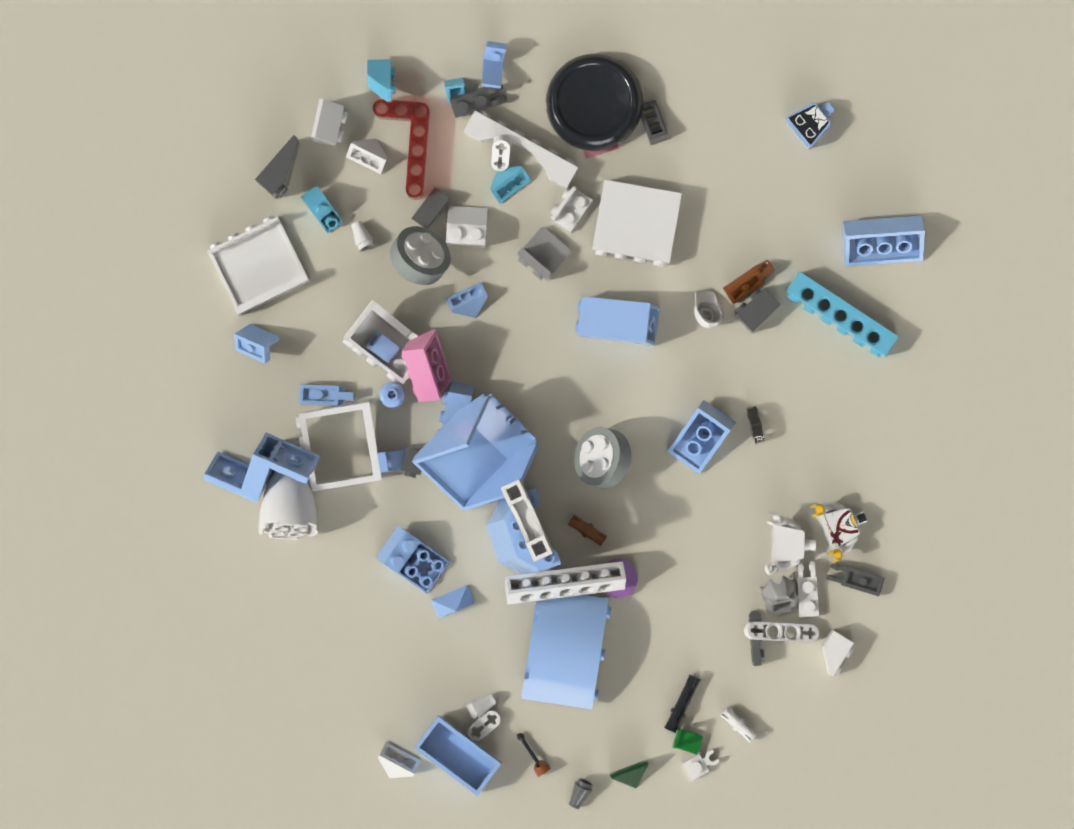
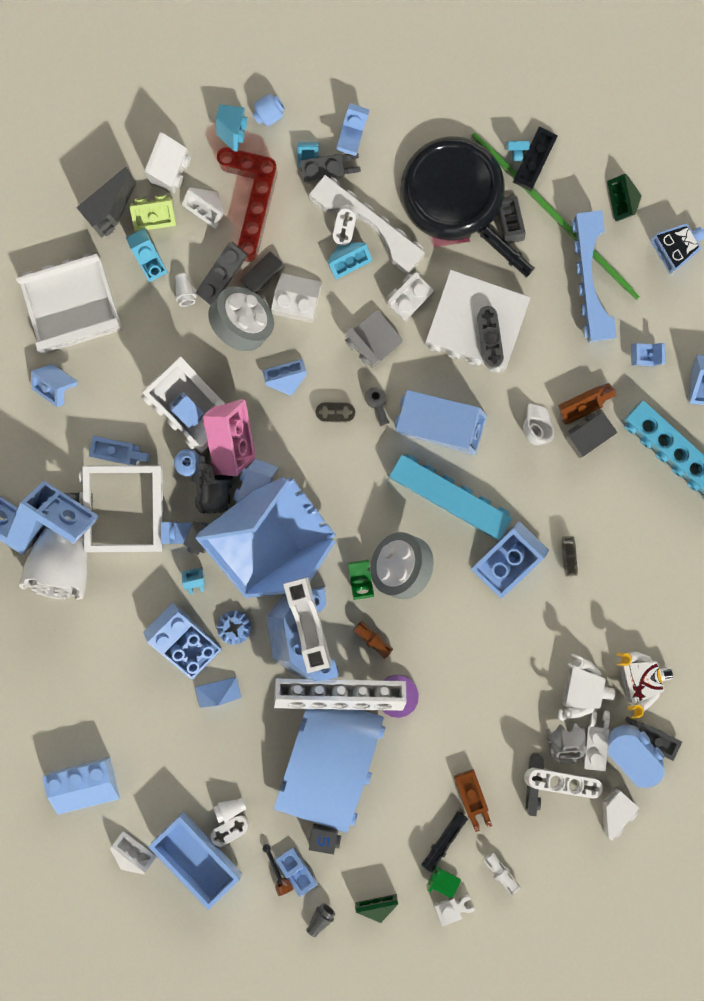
camera: 10 degrees right, 0 degrees up
(321, 169) = (152, 213): none -> yellowish green bracket
(342, 706) = (81, 786): none -> light blue slope
(394, 216) = (222, 272): none -> dark grey plate
(412, 57) = (268, 110): none -> light blue head
(414, 500) = (193, 579): none -> medium azure tile
(417, 415) = (211, 490): none -> dark grey helmet
(467, 541) = (237, 618): none -> light blue gear
(521, 331) = (335, 418): none -> clear smoke beam
(551, 753) = (296, 871): none -> light blue slope
(557, 313) = (377, 404): none -> dark grey bar
(567, 476) = (360, 579): none -> green bracket
(572, 718) = (324, 839): none -> dark grey brick
(637, 388) = (451, 497): none -> medium azure brick
(640, 223) = (483, 322): none -> dark grey beam
(648, 54) = (516, 148): none -> medium azure tile
(662, 158) = (513, 257): none -> black pin
(666, 62) = (535, 158): none -> black tile
(701, 659) = (472, 797): none -> dark orange hinge
(723, 133) = (558, 219): none -> bright green piece
(725, 121) = (598, 323): none -> light blue arch
(754, 84) = (623, 196): none -> dark green slope
(798, 228) = (648, 354): none -> light blue bracket
(843, 596) = (636, 755): none -> light blue brick

